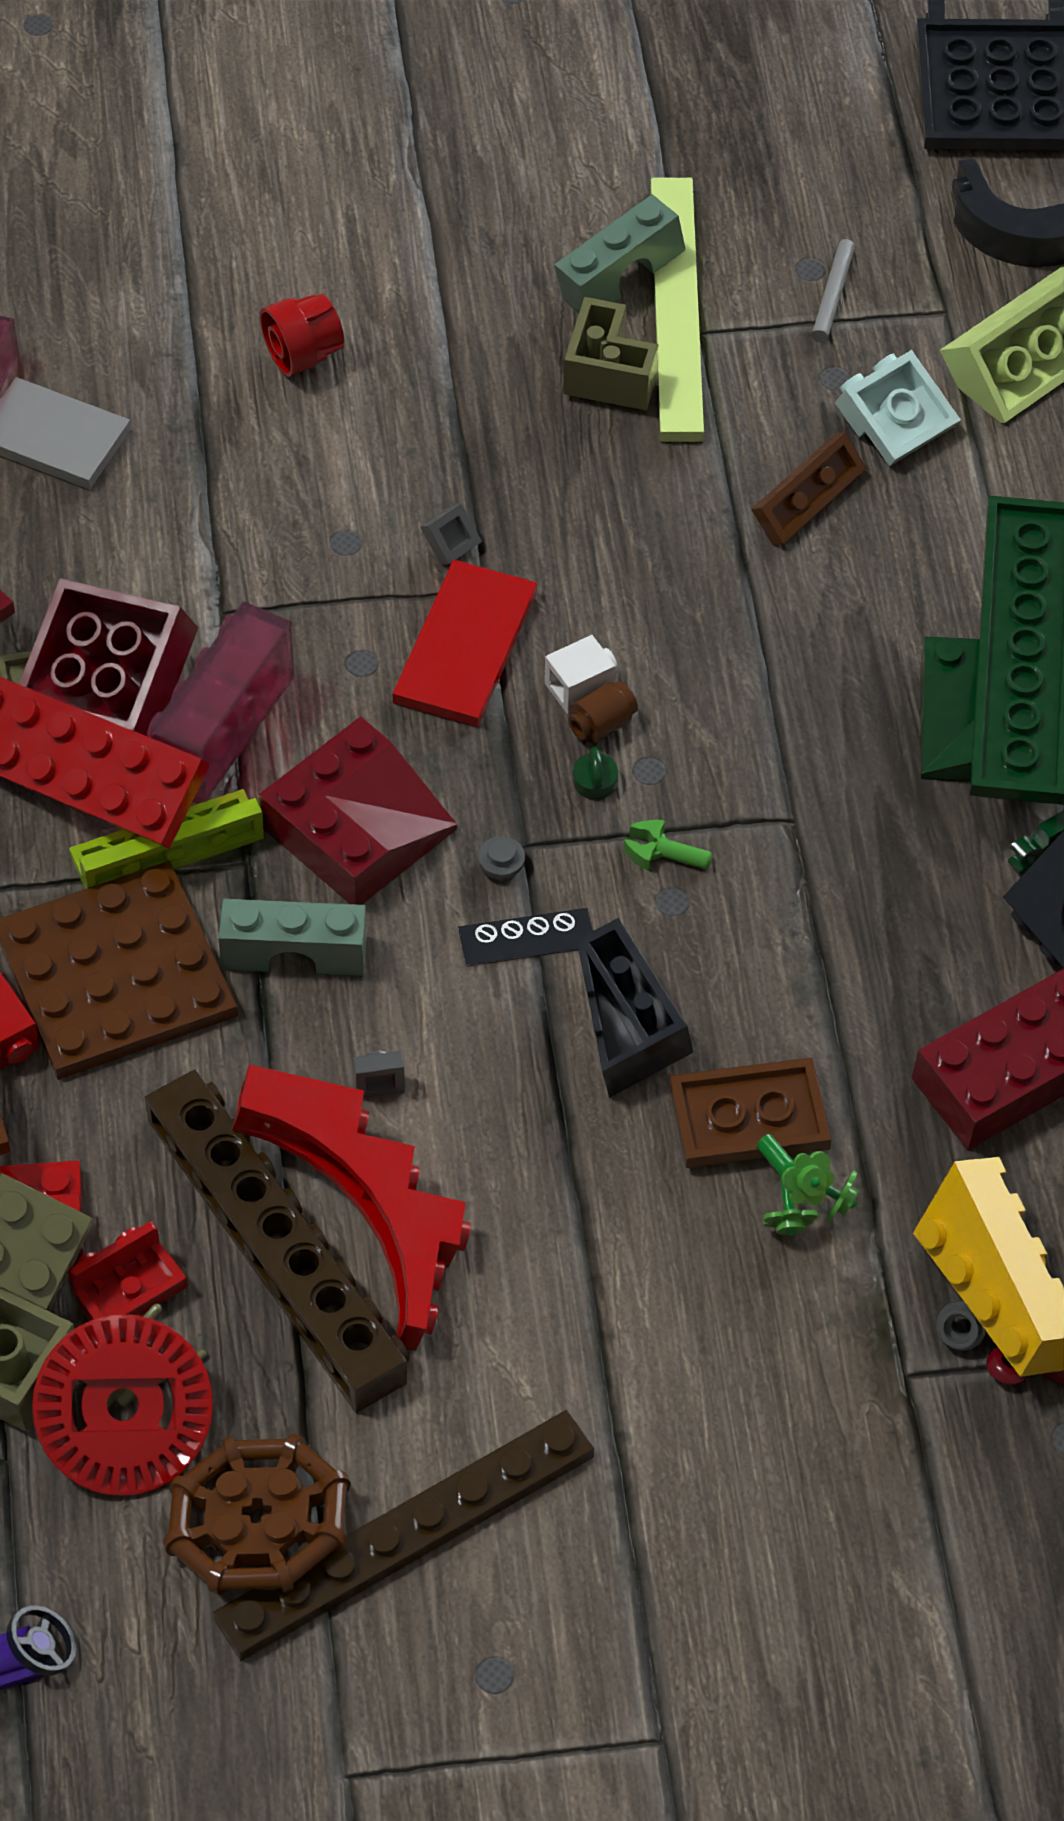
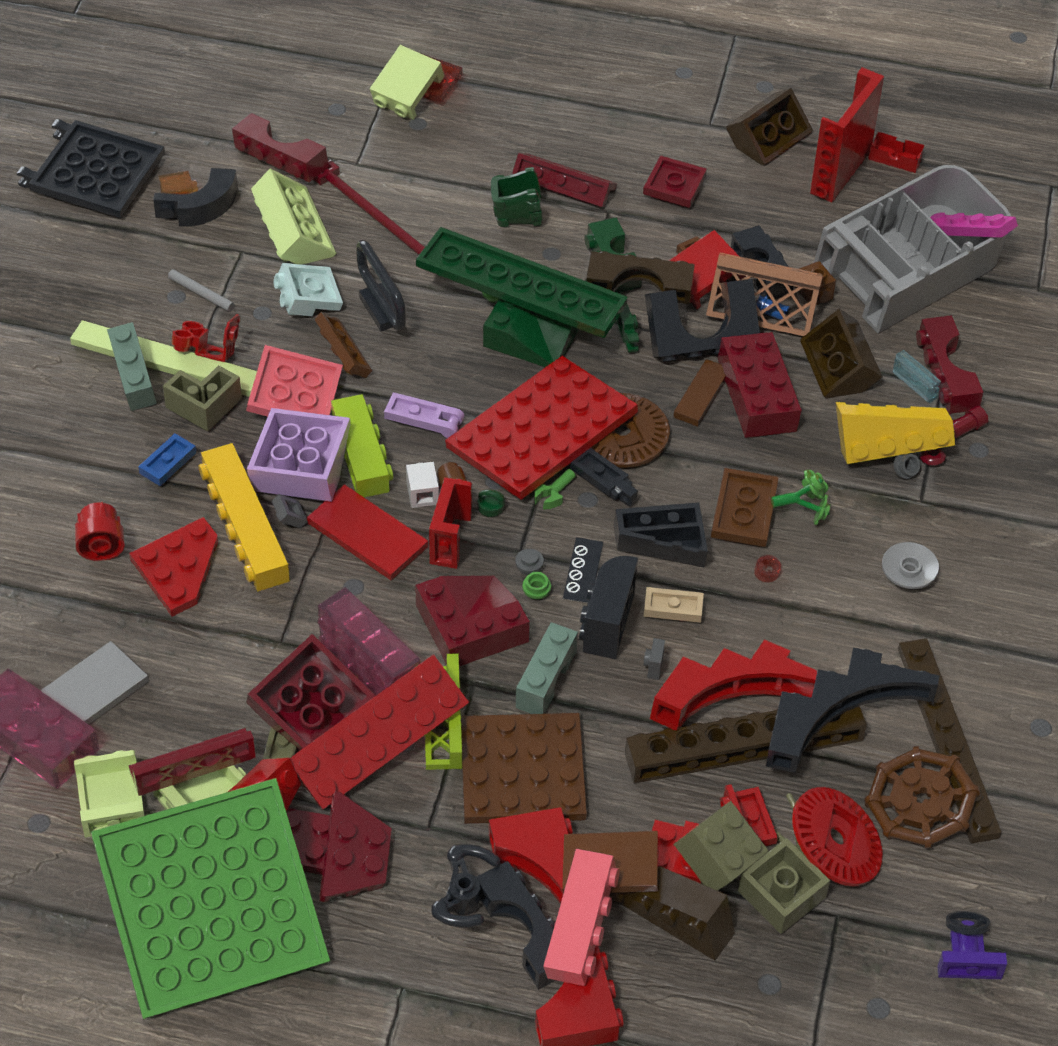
camera: 70 degrees left, 5 degrees down
(302, 446) = (177, 564): none -> red plate
(311, 1284) = (833, 693): none -> black arch
(414, 486) = (244, 517): none -> yellow brick
(438, 975) = (608, 607): none -> black brick
(458, 871) = (534, 580): none -> bright green plate
(480, 365) = (167, 459): none -> blue plate
(500, 1070) = (673, 604): none -> tan plate
(507, 716) = (444, 536): none -> red panel
(548, 500) = (299, 454): none -> lavender slope
(617, 575) = (362, 451): none -> lime brick
(633, 1171) = (771, 561): none -> clear red bush
(686, 458) = (293, 383): none -> coral plate
(718, 902) = (605, 476): none -> black hinge
(724, 324) = (195, 335): none -> red piece
(724, 633) = (423, 414): none -> lavender plate
(738, 1364) = (912, 557): none -> light grey dish
(776, 788) = (541, 427): none -> red plate
(845, 938) = (646, 438): none -> reddish brown piece
(936, 499) = (383, 299): none -> black bar
(964, 985) = (700, 393): none -> reddish brown tile
(1014, 180) = (177, 183): none -> clear orange brick

